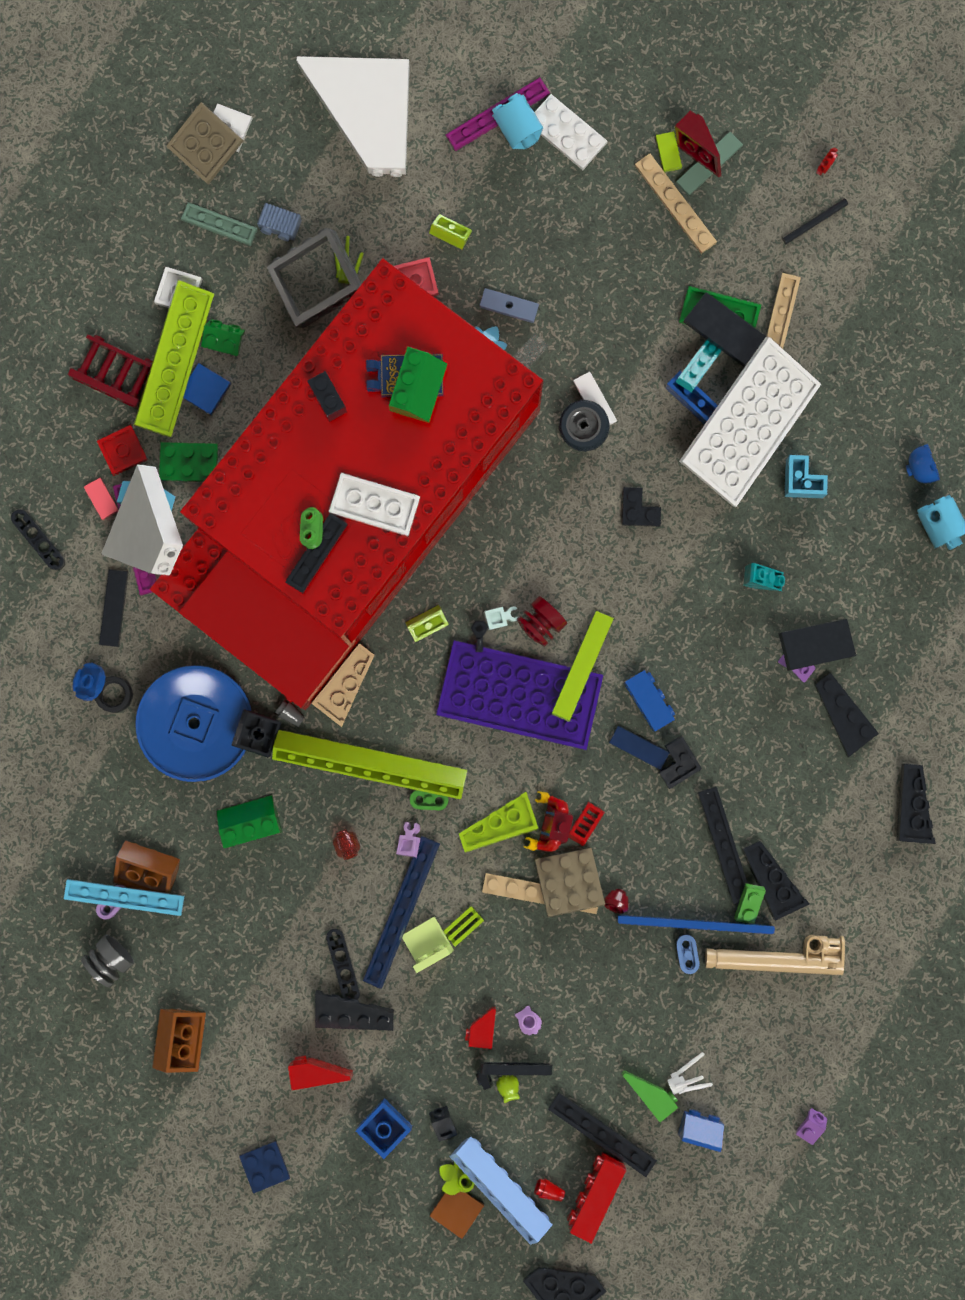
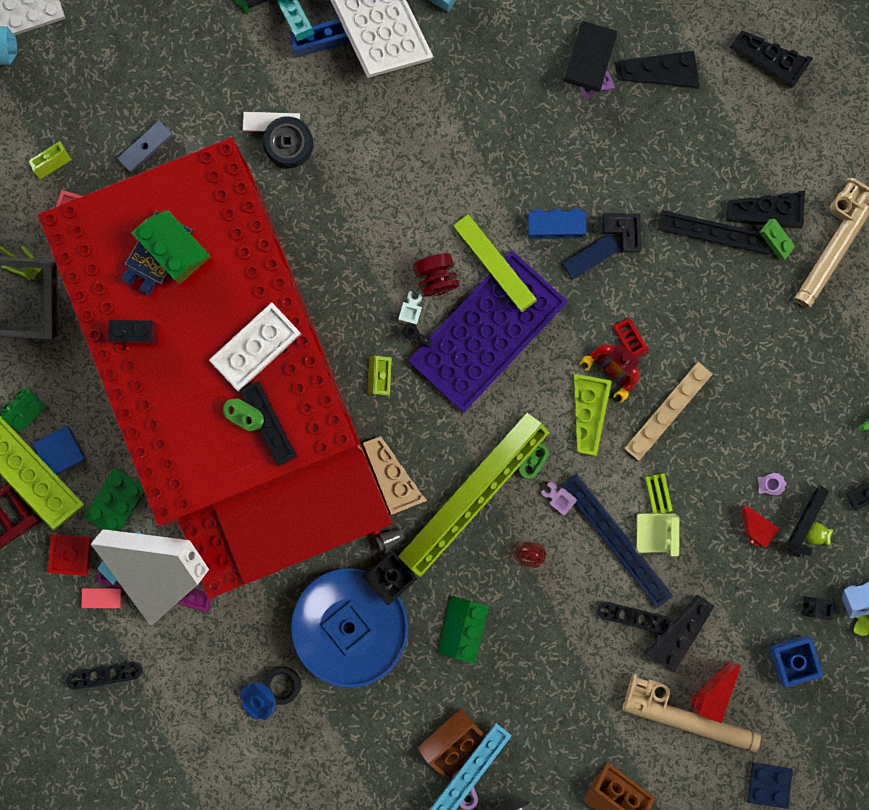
camera: 60 degrees left, 0 degrees up
(113, 608) = (205, 642): black tile -> none
(273, 1017) = (644, 703): none -> tan piece
(569, 882) = (673, 381): dark tan plate -> none
(617, 901) = (712, 350): dark red cone -> none
(633, 511) = (389, 144): black plate -> none
(688, 953) = (789, 316): medium blue plate -> none
(695, 924) = (768, 295): blue tile -> none
(762, 577) = (507, 68): teal slope -> none

